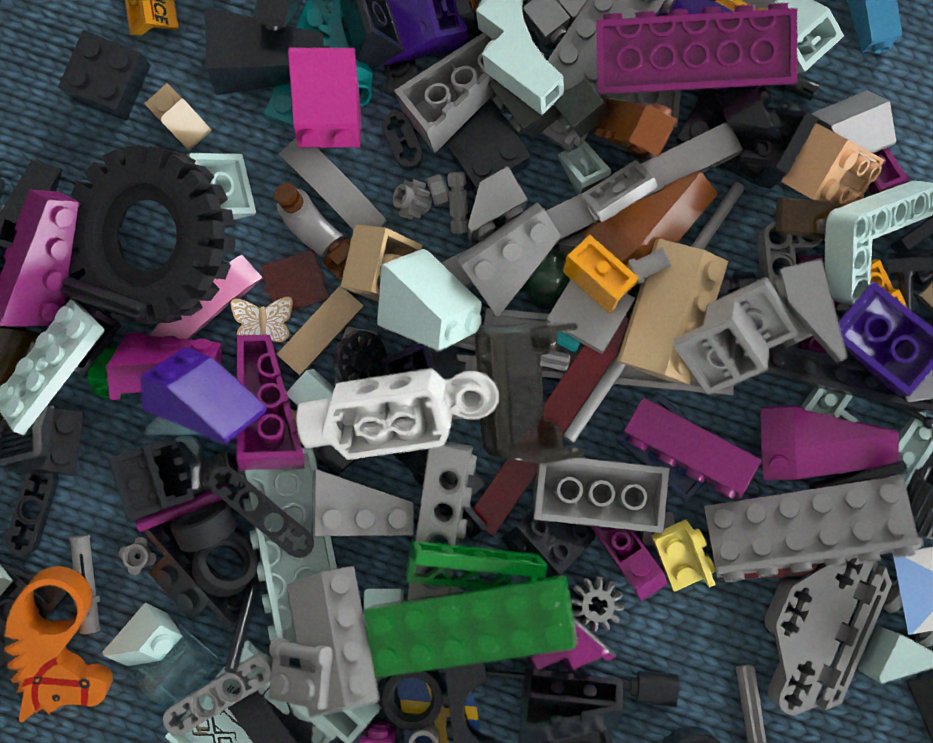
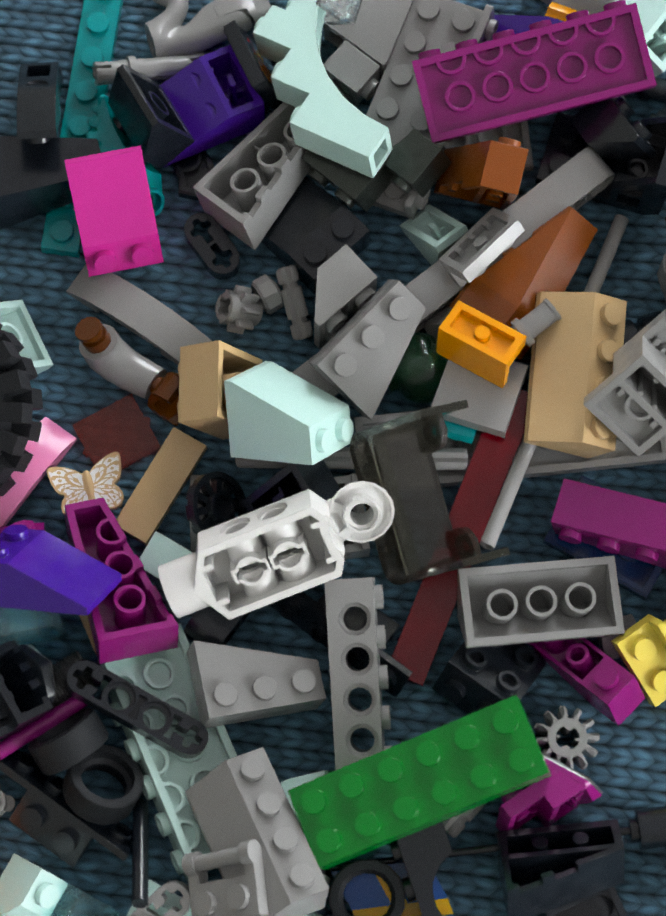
camera: 15 degrees left, 10 degrees down
(473, 560) = (399, 705): green fence -> none

